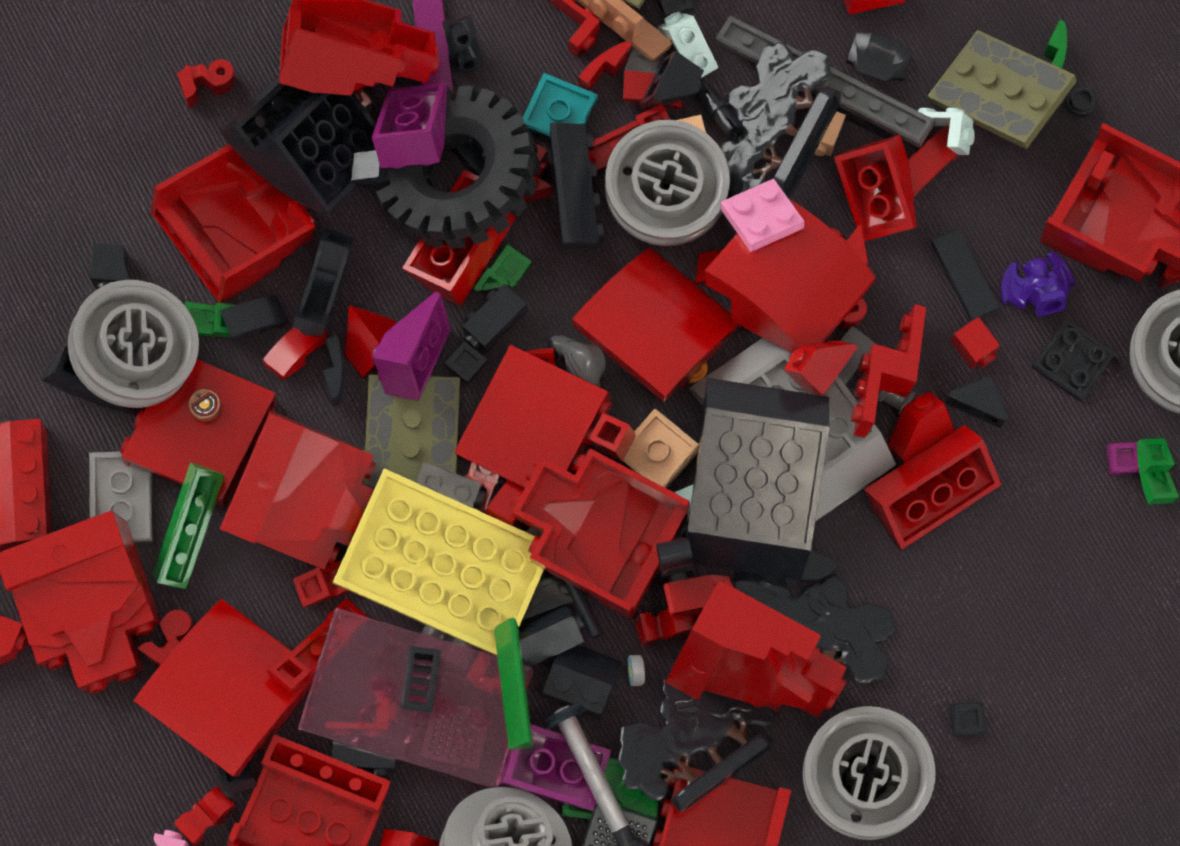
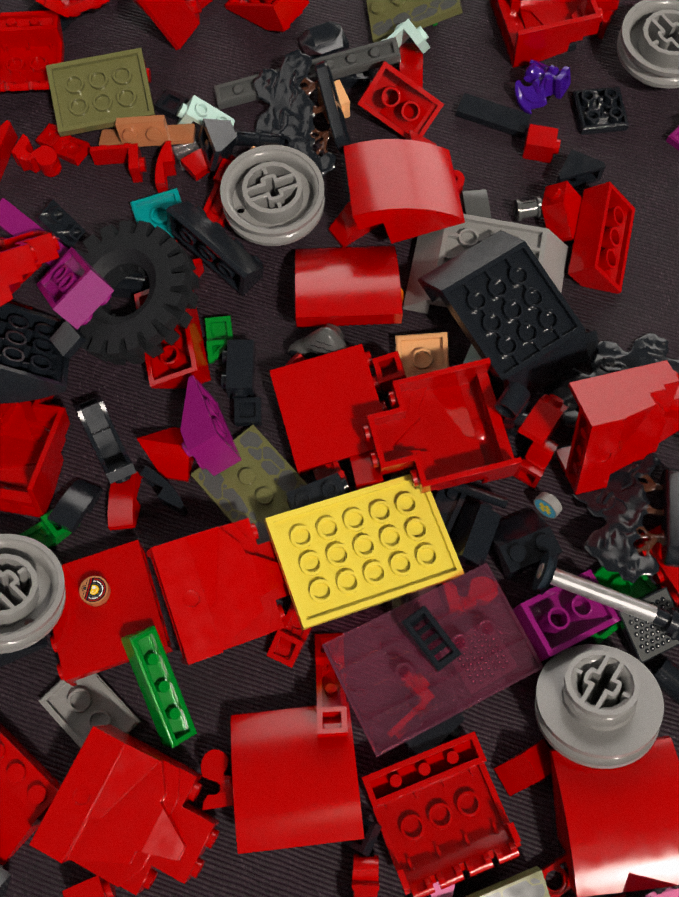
camera: 40 degrees left, 5 degrees down
(513, 685) = (493, 584): green slope -> none
(762, 215) = (352, 160): bright pink plate -> none
(818, 364) = (476, 216): red slope -> none
(888, 370) = (516, 191): red bracket -> none

